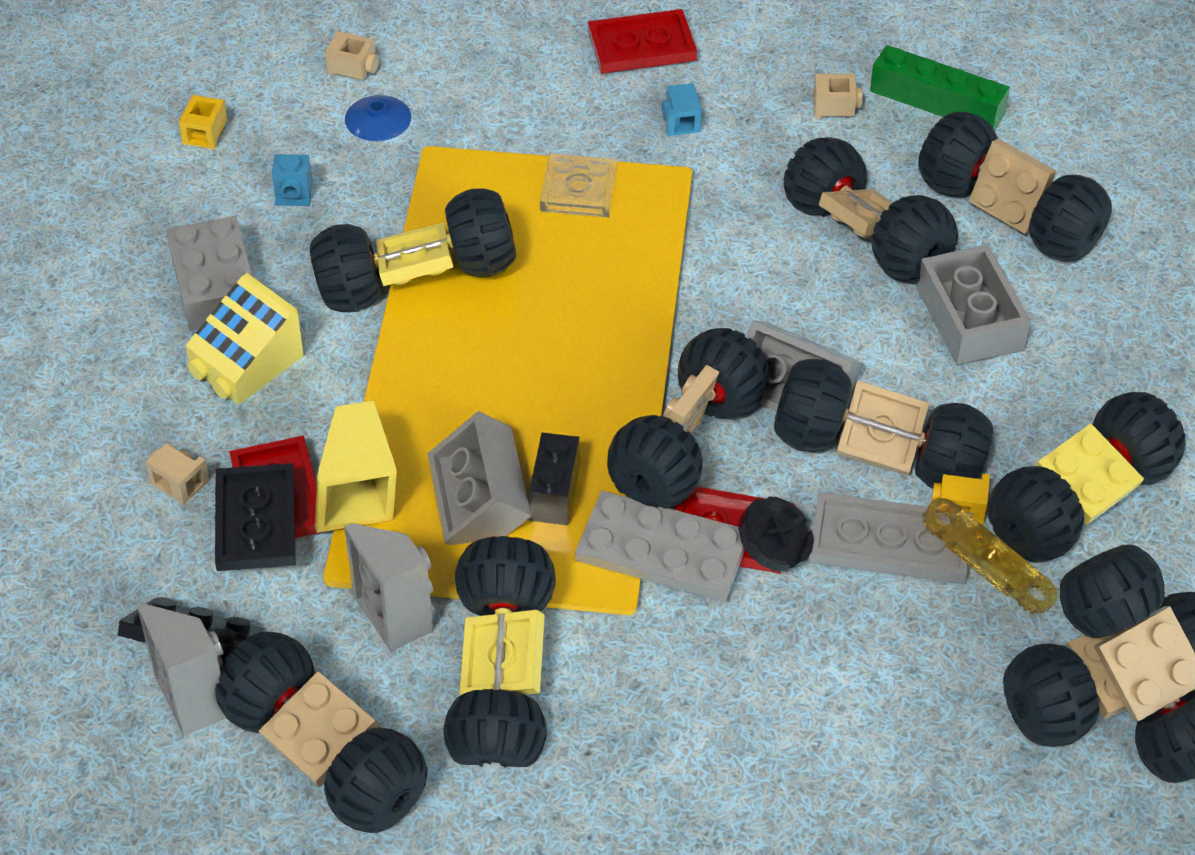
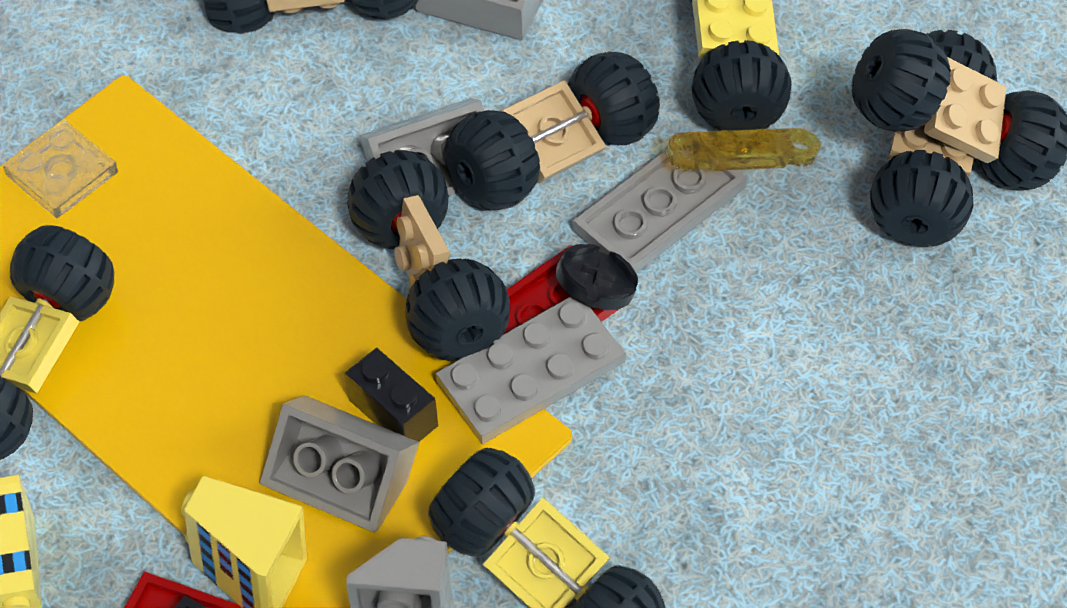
camera: 50 degrees left, 5 degrees up
(682, 110) = (50, 34): dark azure brick -> none
(966, 492) = (664, 123): yellow brick -> none

